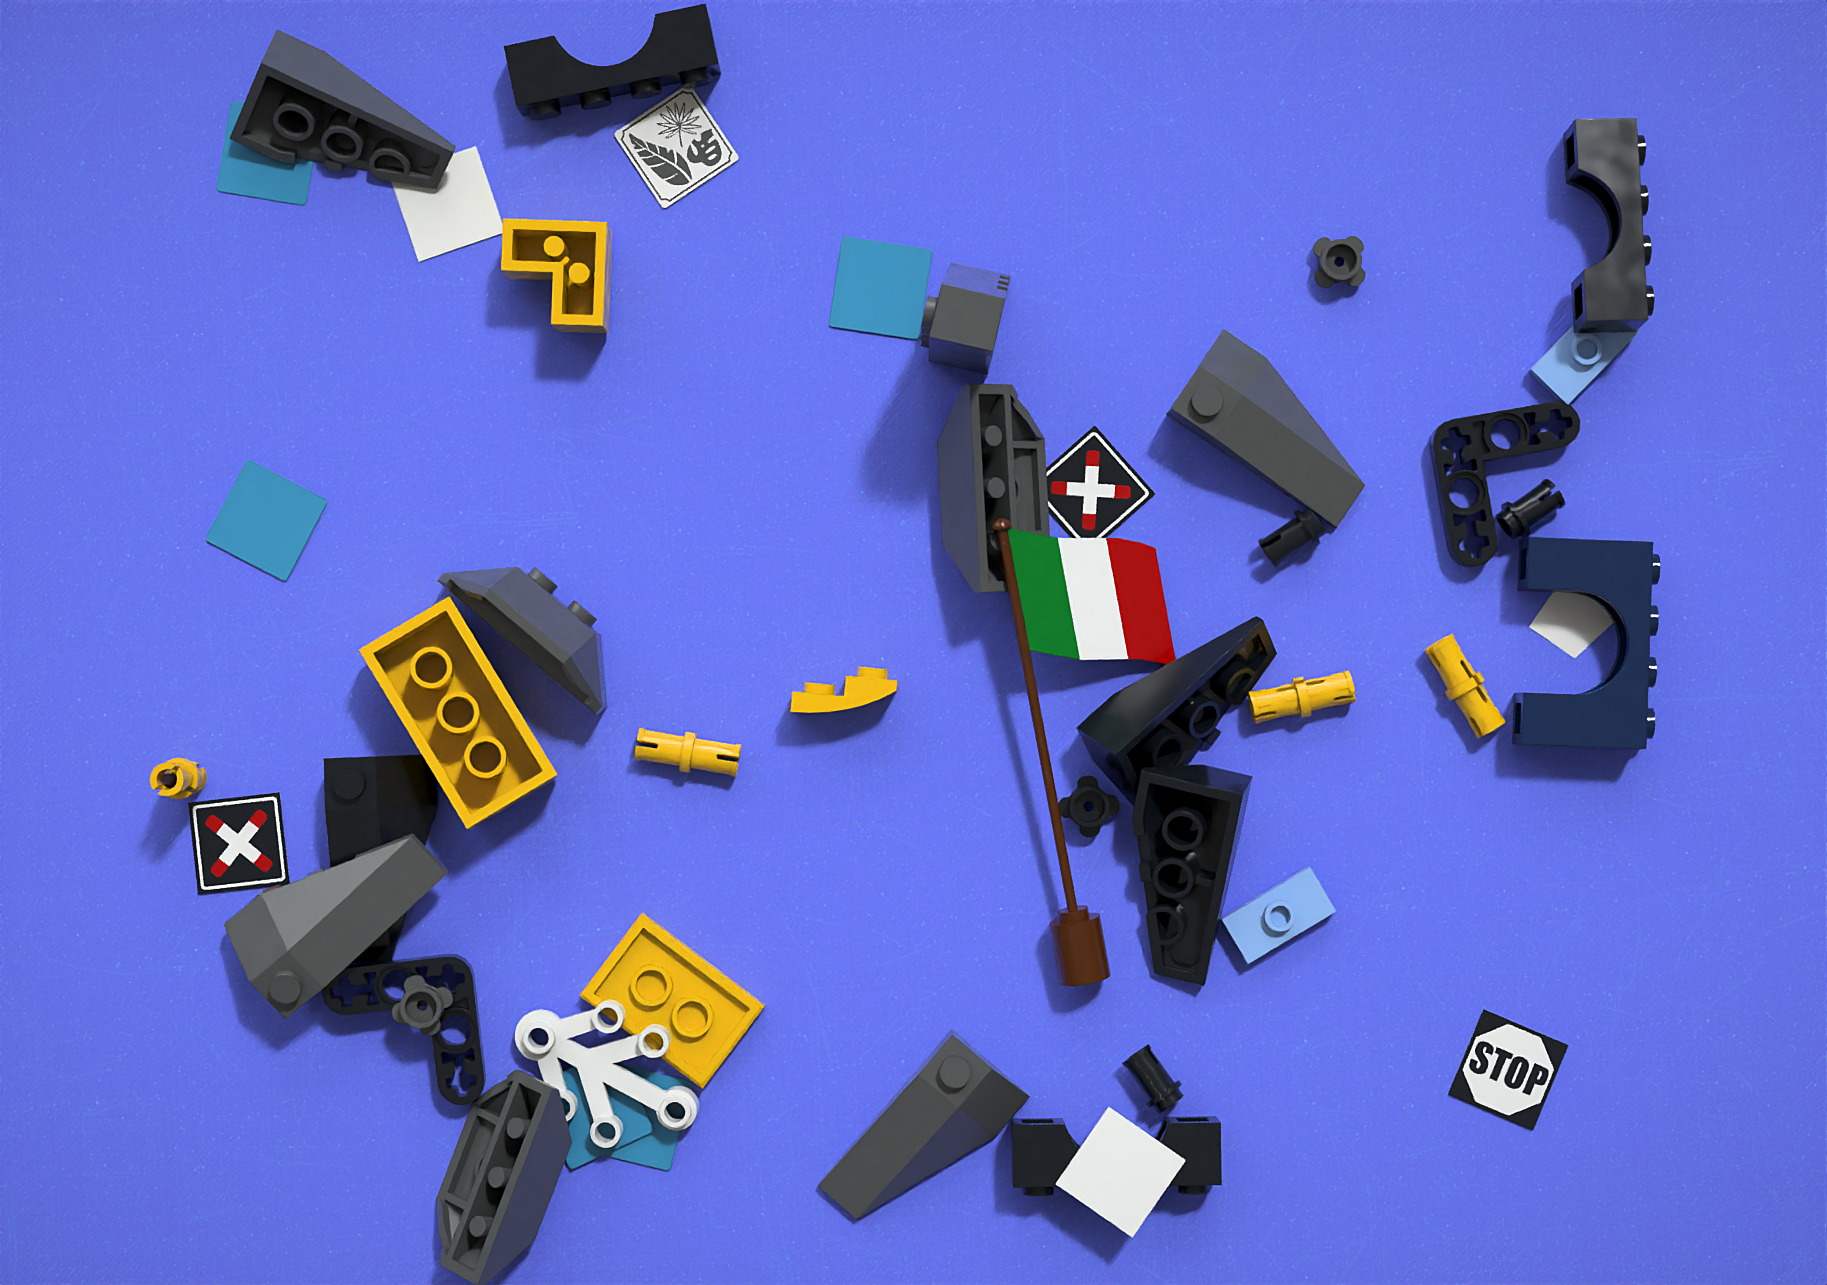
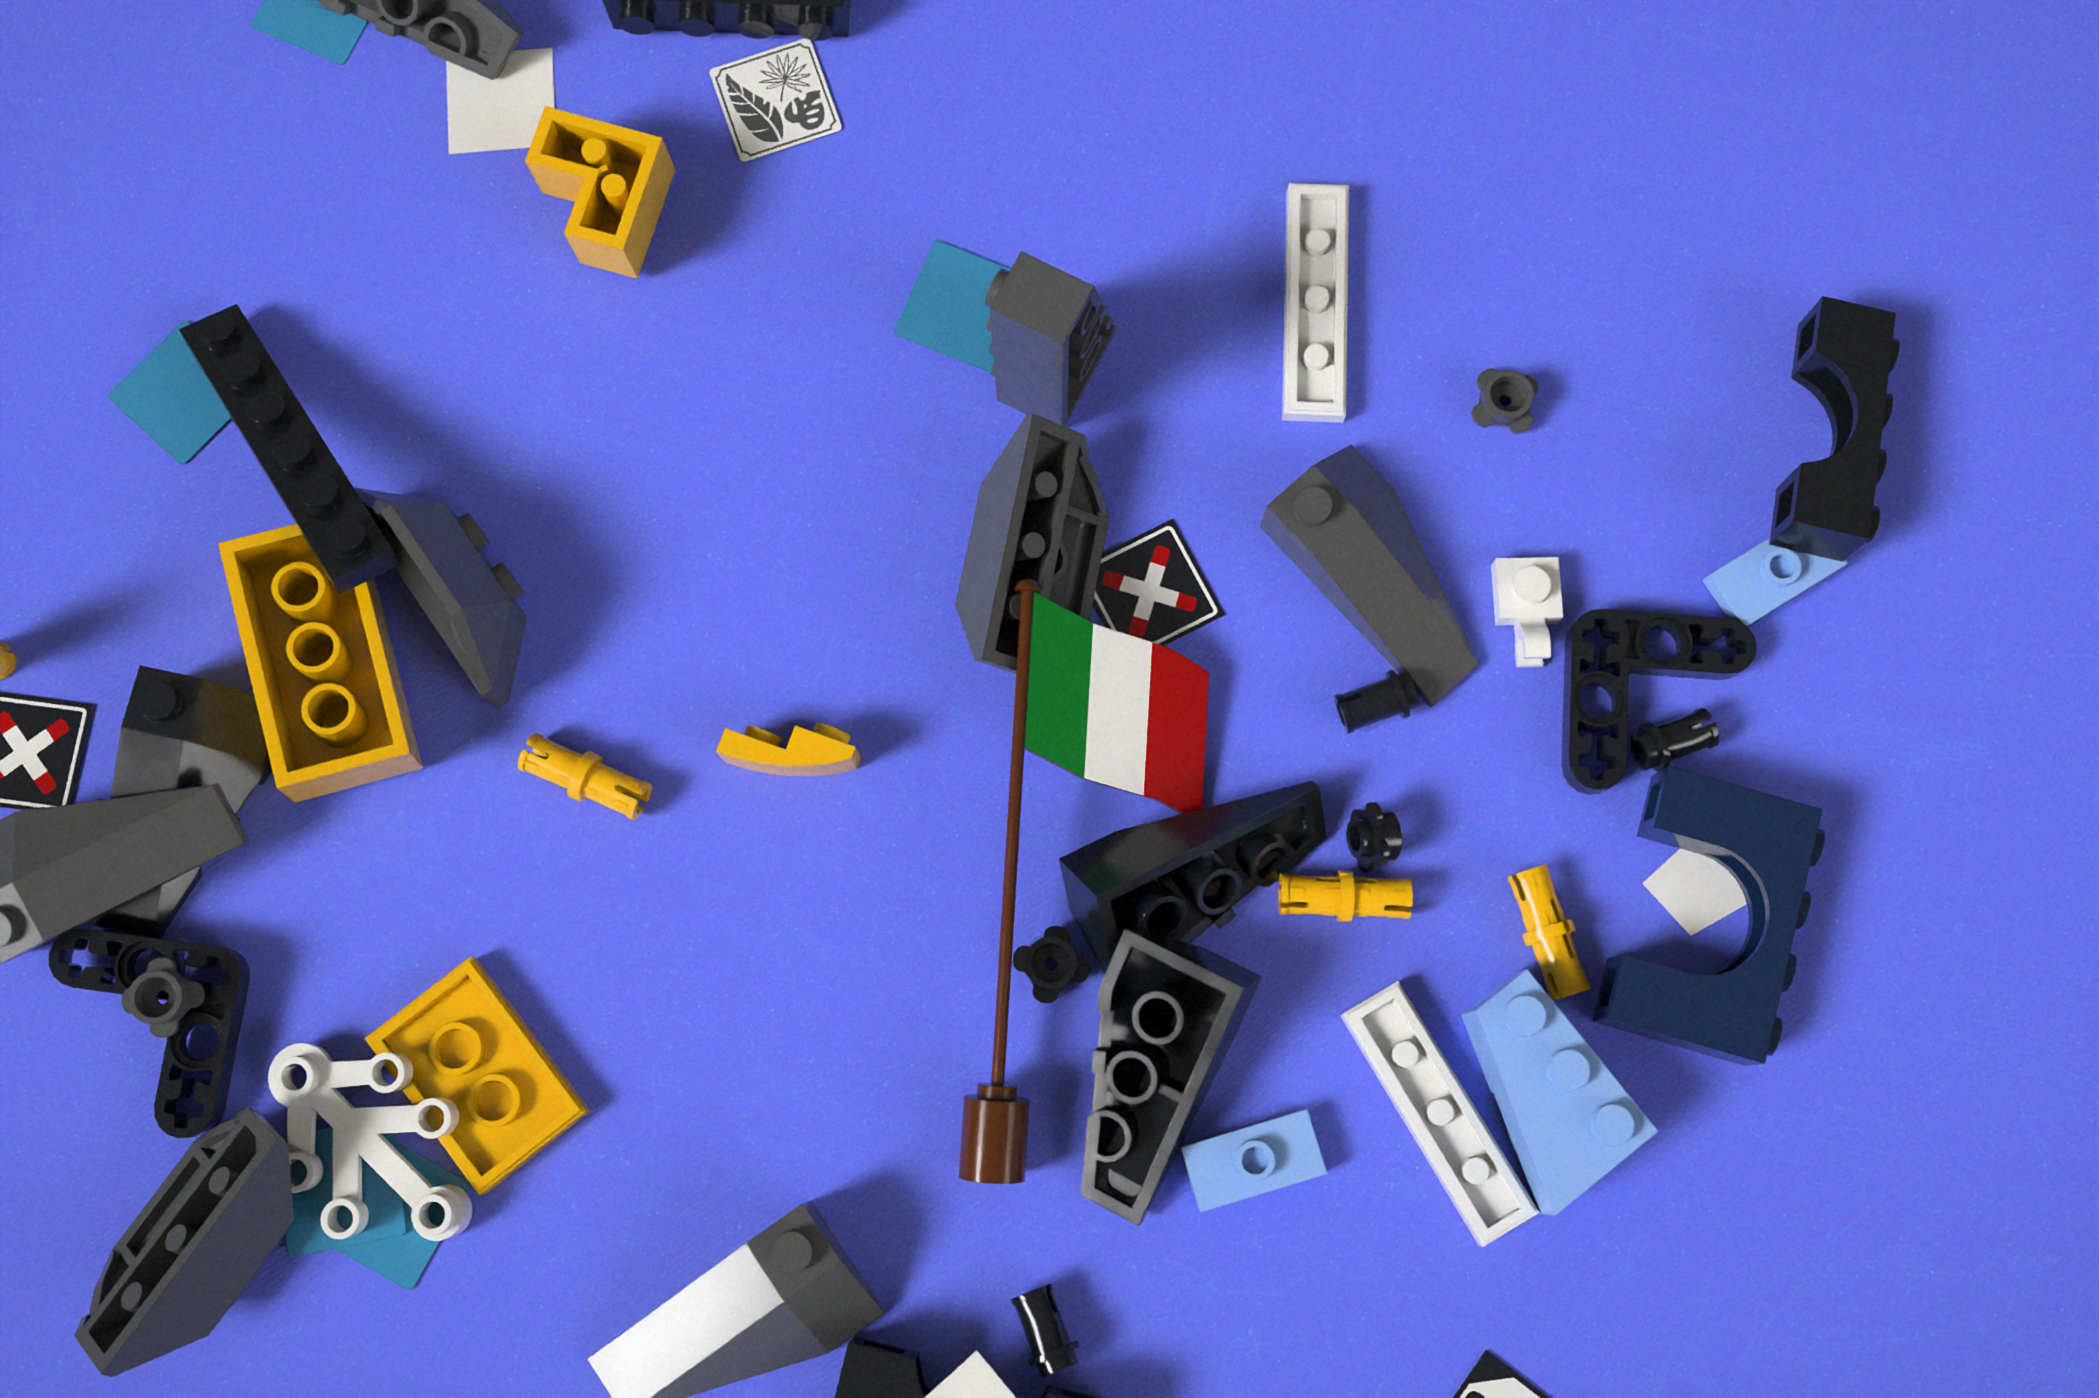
camera: 15 degrees right, 10 degrees down
(381, 553) = (289, 449): none -> black plate
(1167, 214) = (1315, 303): none -> white tile
(1313, 646) = (1373, 836): none -> black plate
(1391, 421) = (1529, 598): none -> white plate
(1410, 843) = (1439, 1114): none -> white tile
(1492, 808) = (1554, 1093): none -> light blue wedge

